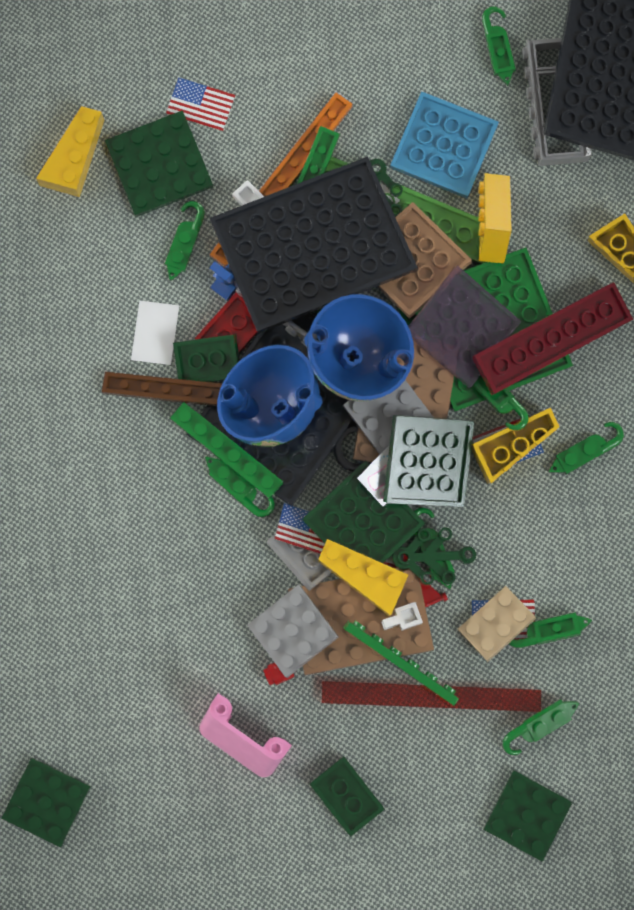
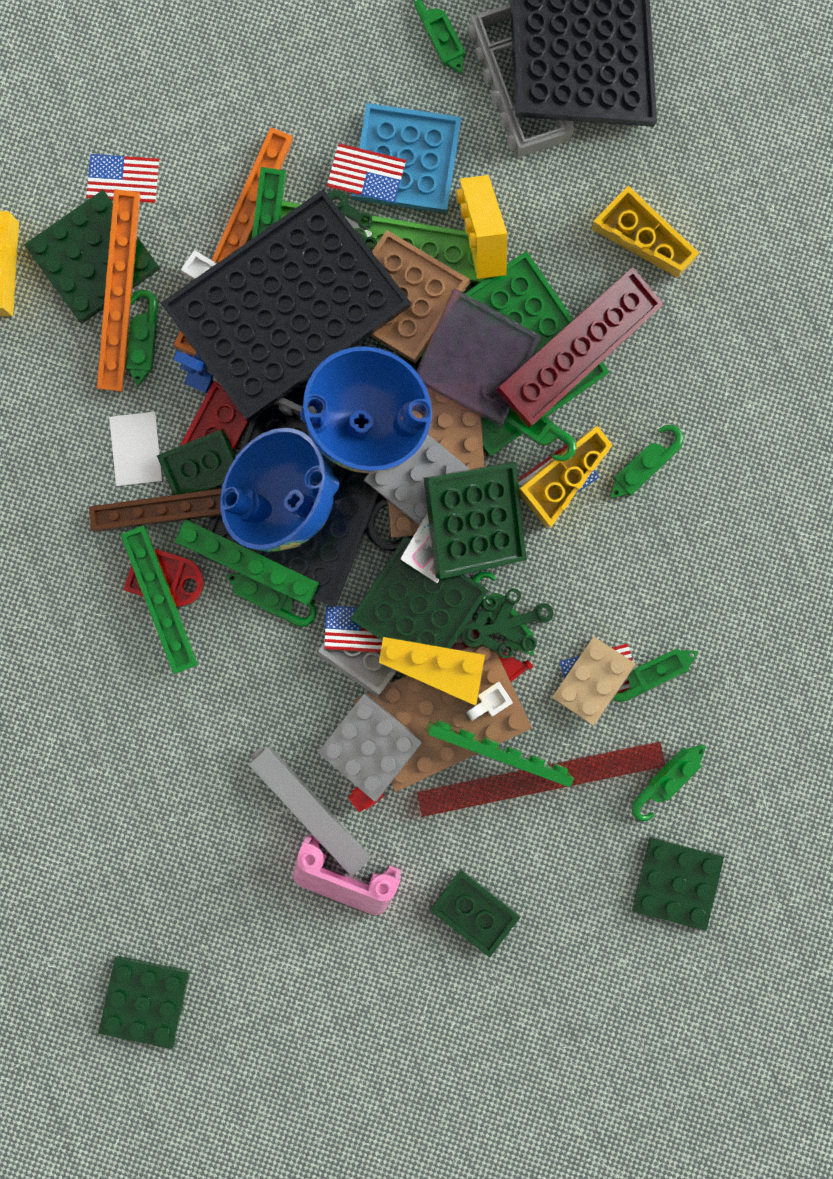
camera: 15 degrees left, 5 degrees up
(145, 464) = (159, 599): none -> green plate
(151, 445) = (177, 572): none -> red plate
(175, 198) = (118, 290): none -> orange plate
(227, 672) = (309, 810): none -> light grey brick
(407, 149) = (366, 173): none -> sticker

